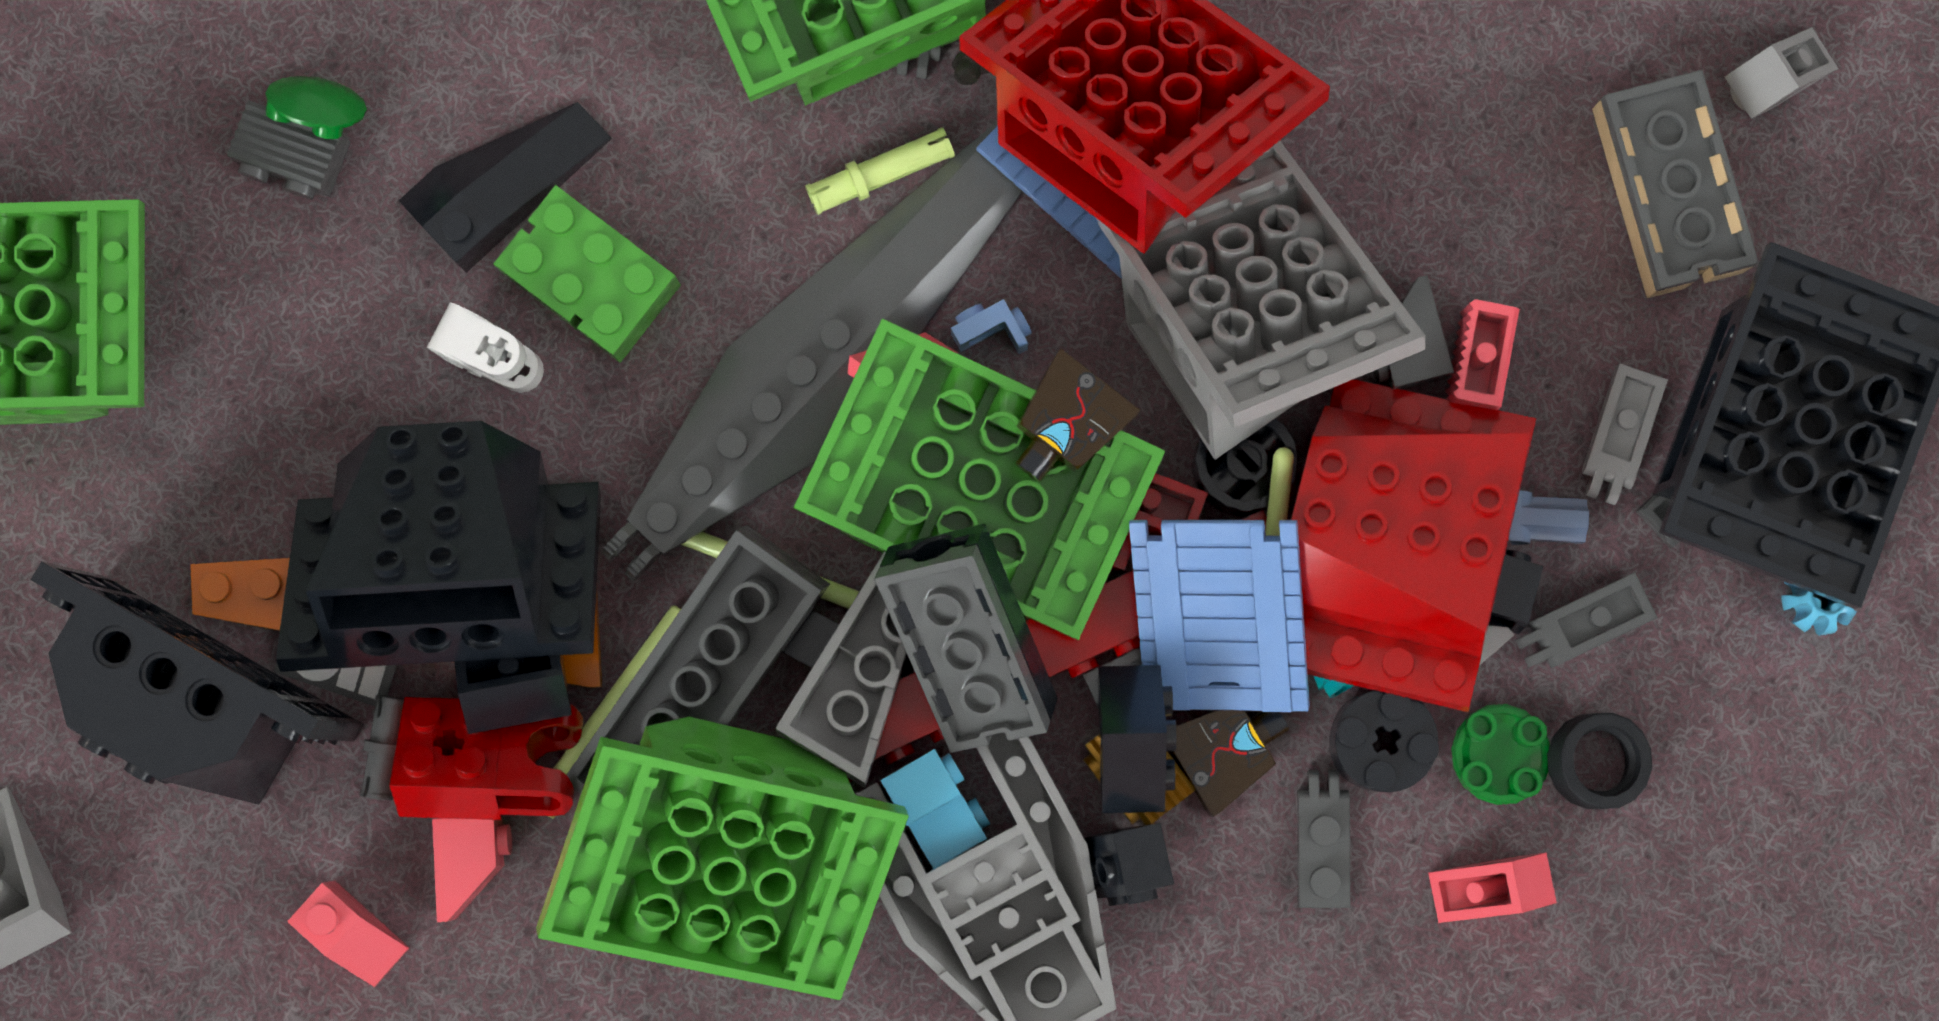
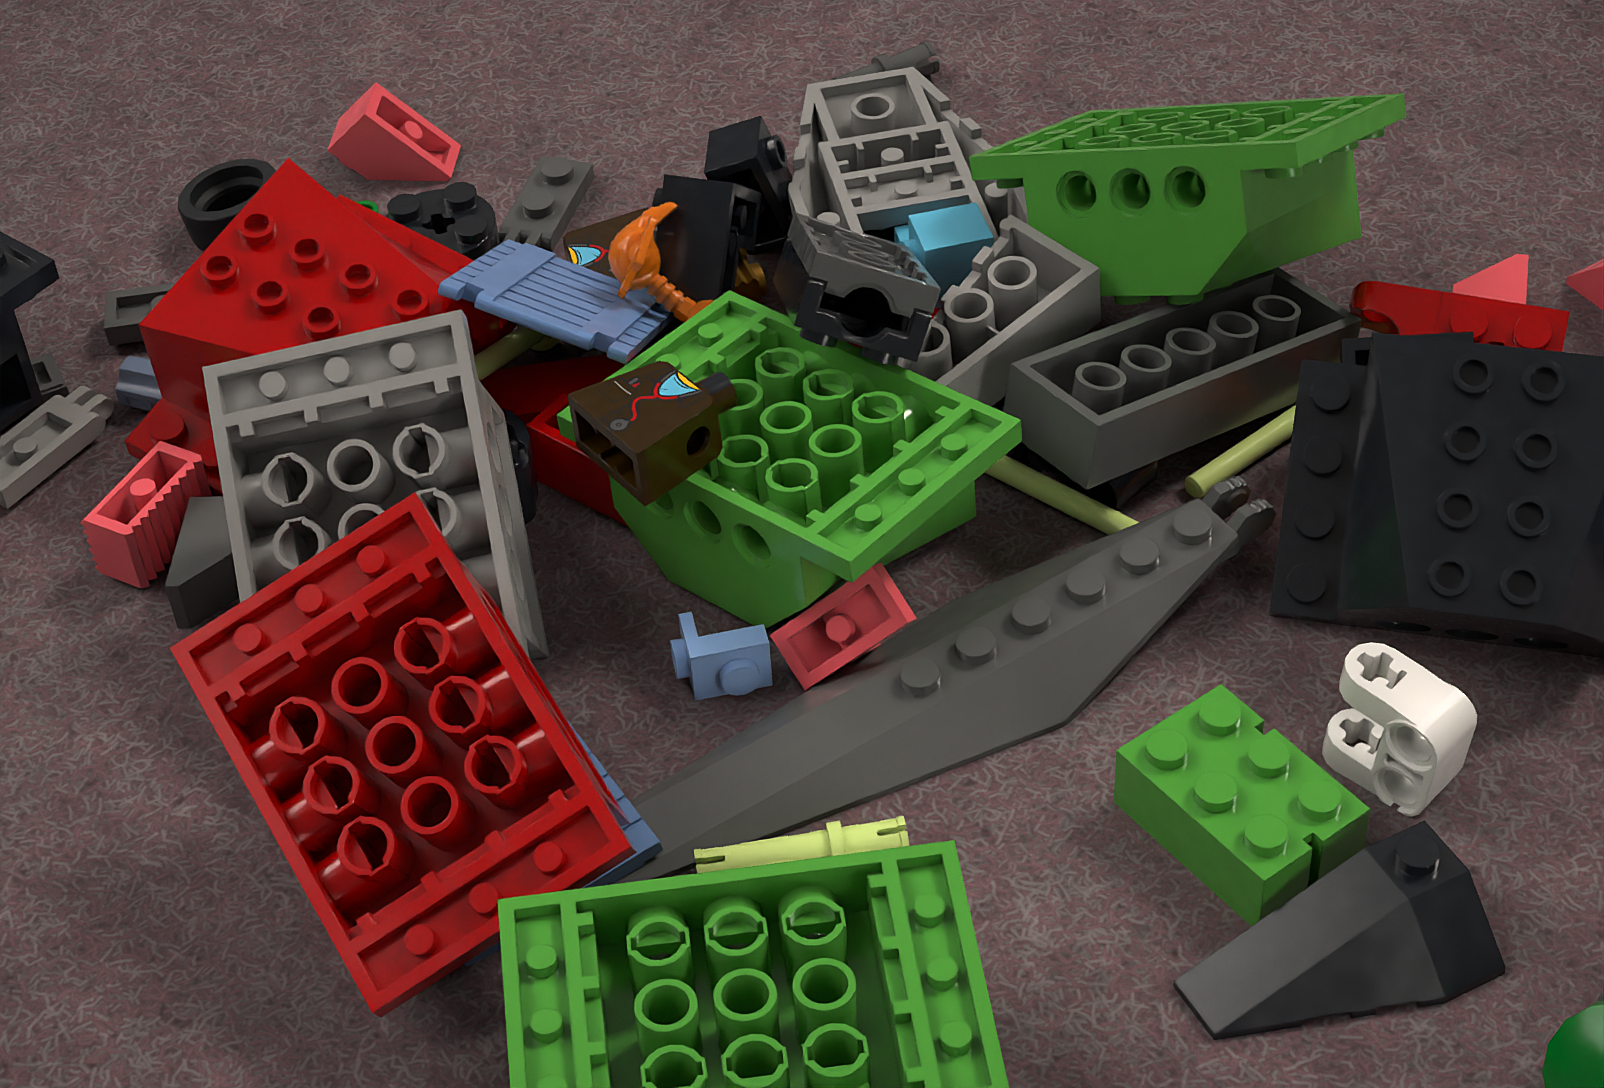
camera: 165 degrees left, 40 degrees down
(1167, 658) = (637, 264): none -> orange piece

